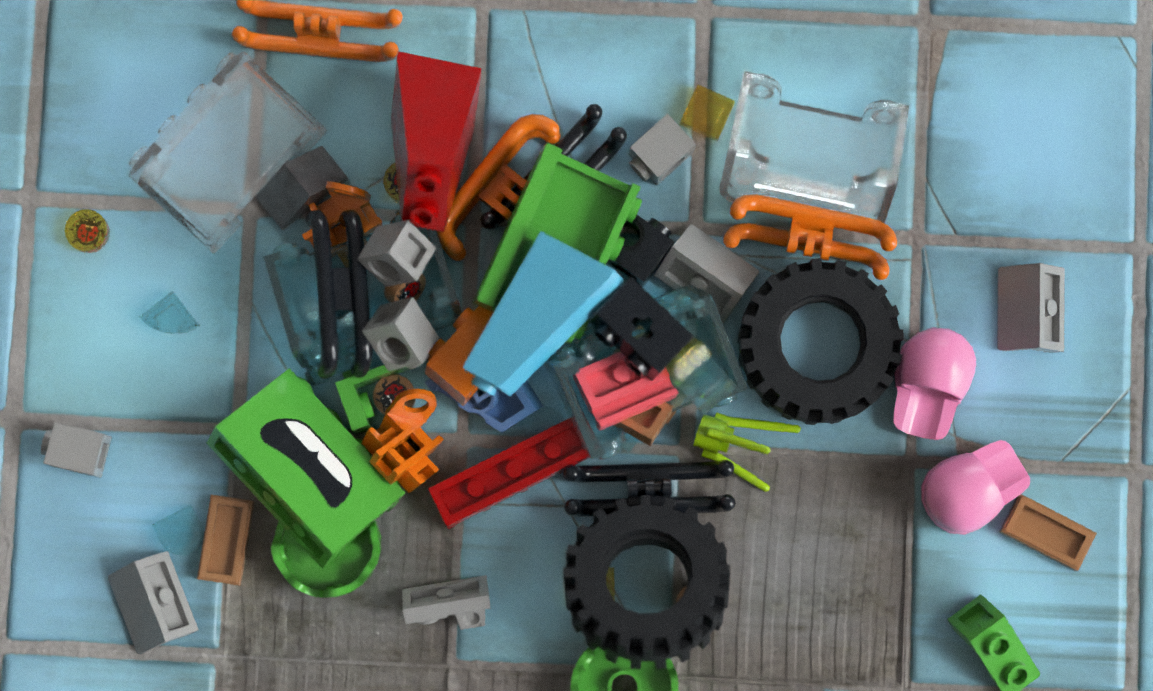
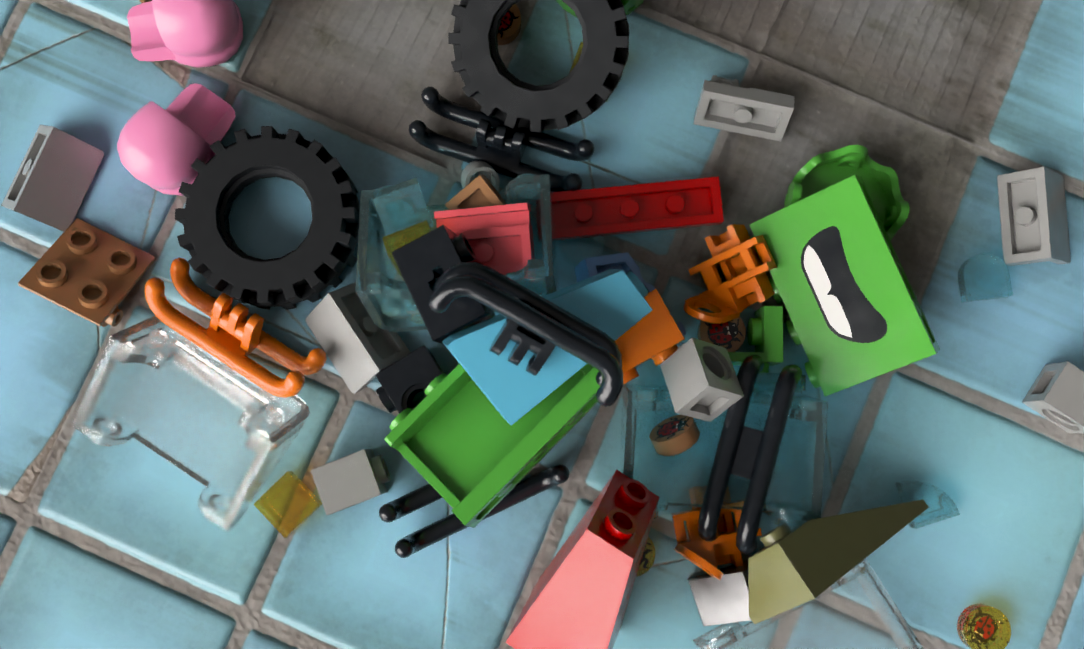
camera: 160 degrees left, 0 degrees up
(225, 540) = (941, 253): medium nougat tile -> none
(260, 228) = (816, 554): none -> olive wedge
(396, 253) = (675, 467): light grey brick -> none
(494, 179) = (536, 516): orange piece -> none
(553, 311) = (532, 324): none -> black piece
(662, 456) = (482, 168): none -> light grey hinge
(716, 436) = (409, 164): lime plant -> none
(959, 239) = (88, 273): none -> medium nougat hinge

